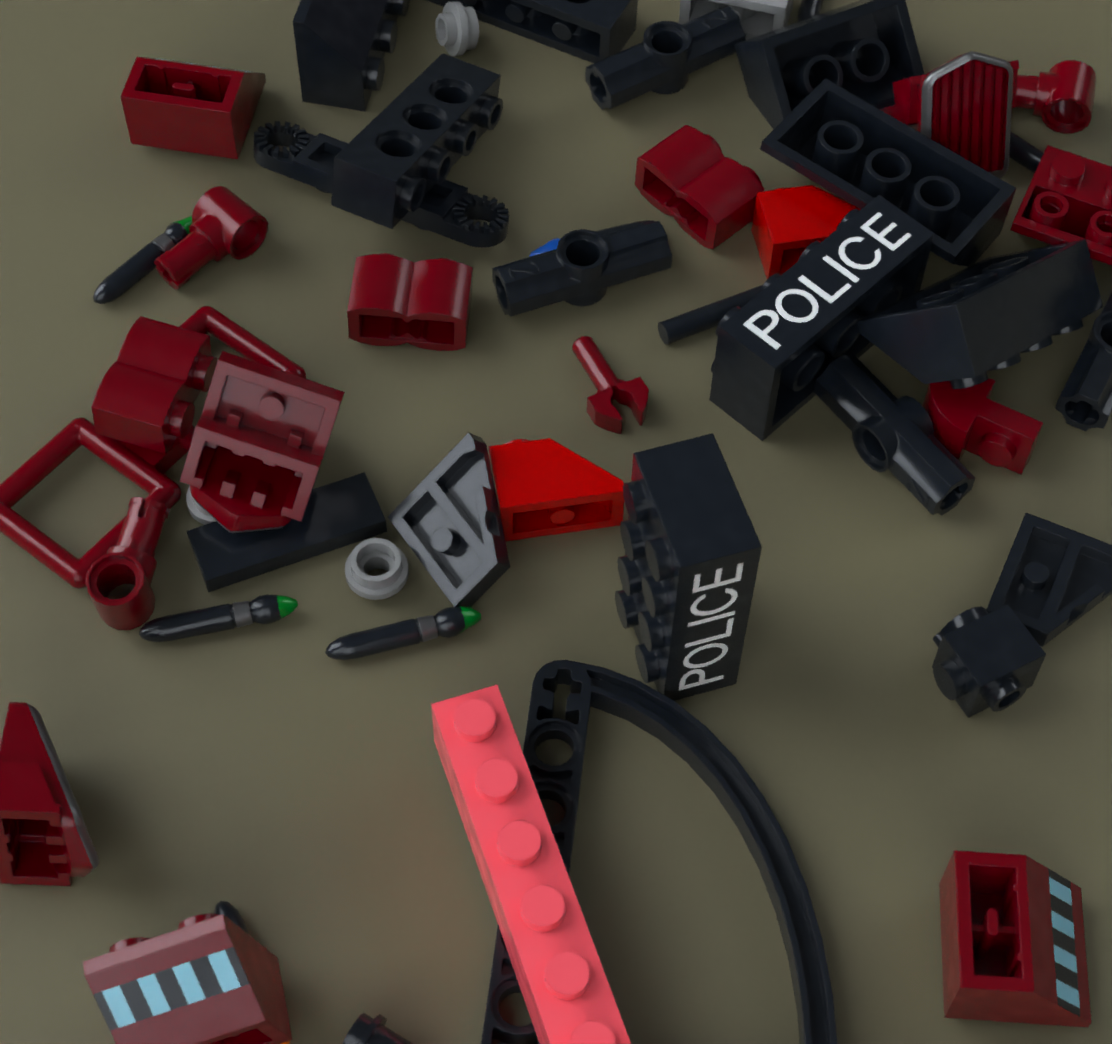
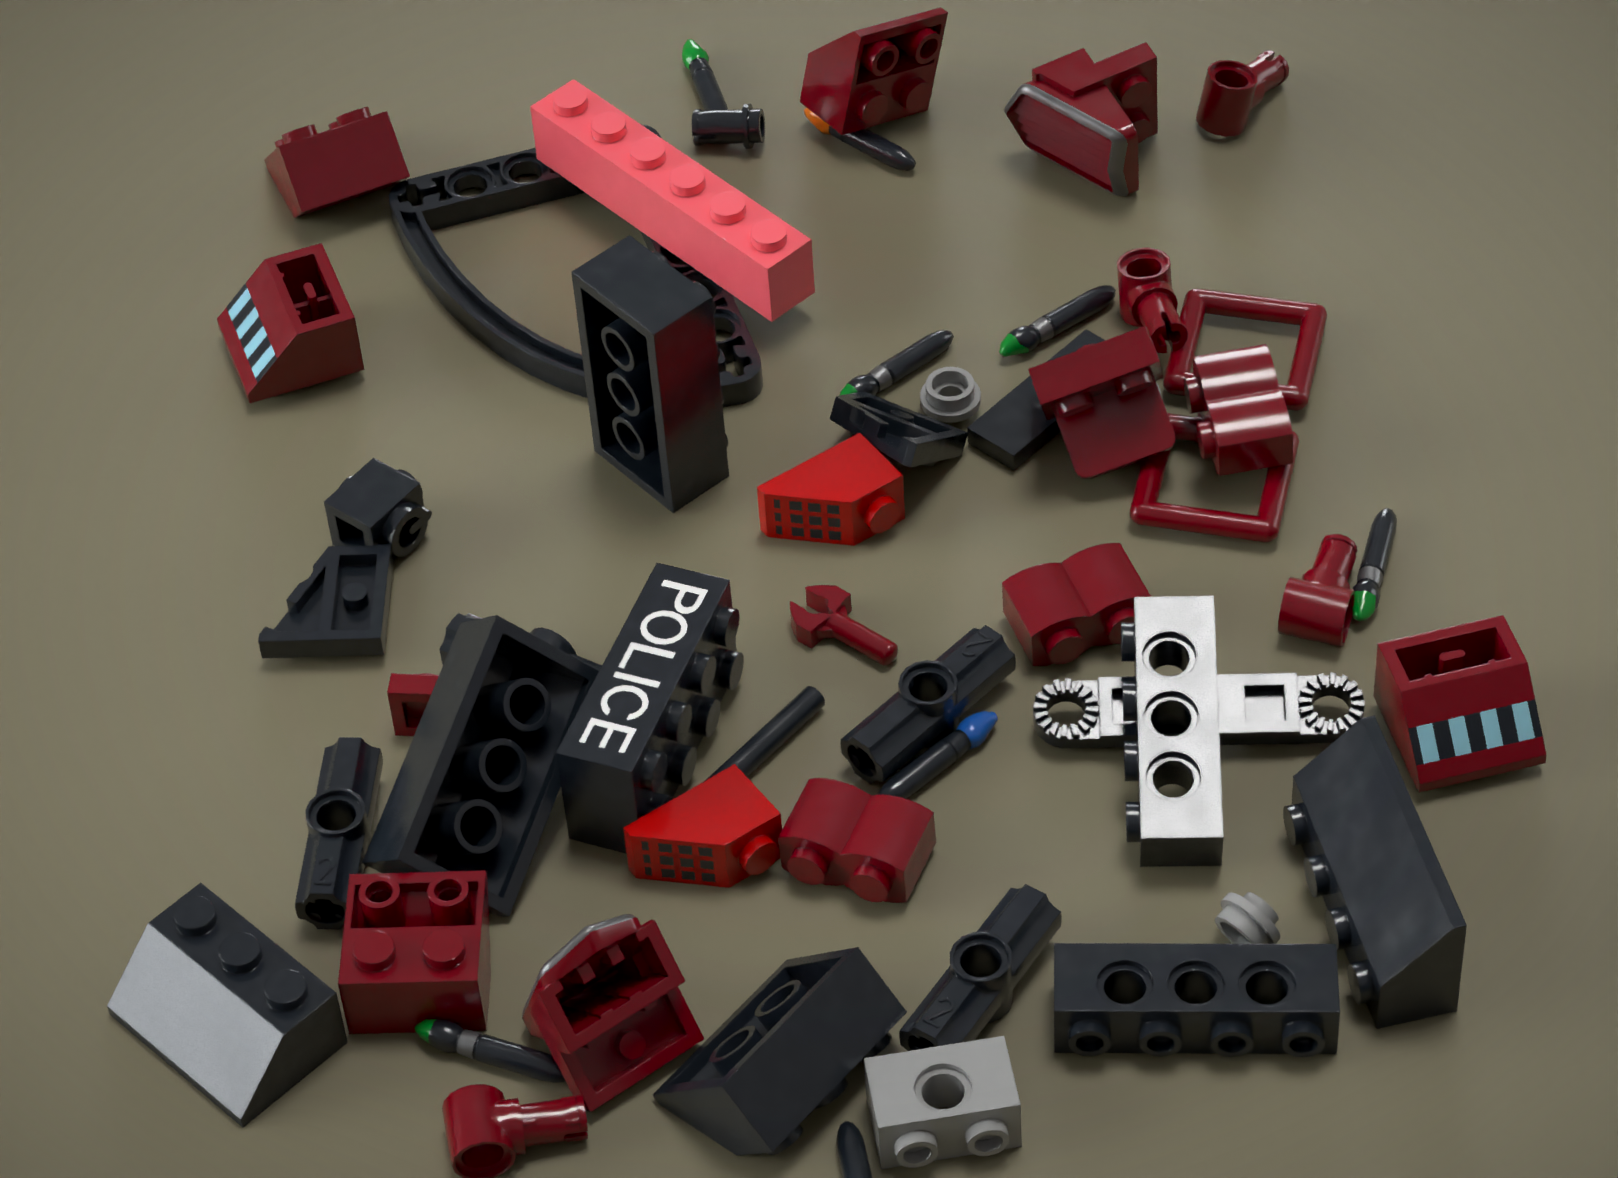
camera: 160 degrees right, 10 degrees down
(870, 154) = (702, 876): black slope -> none

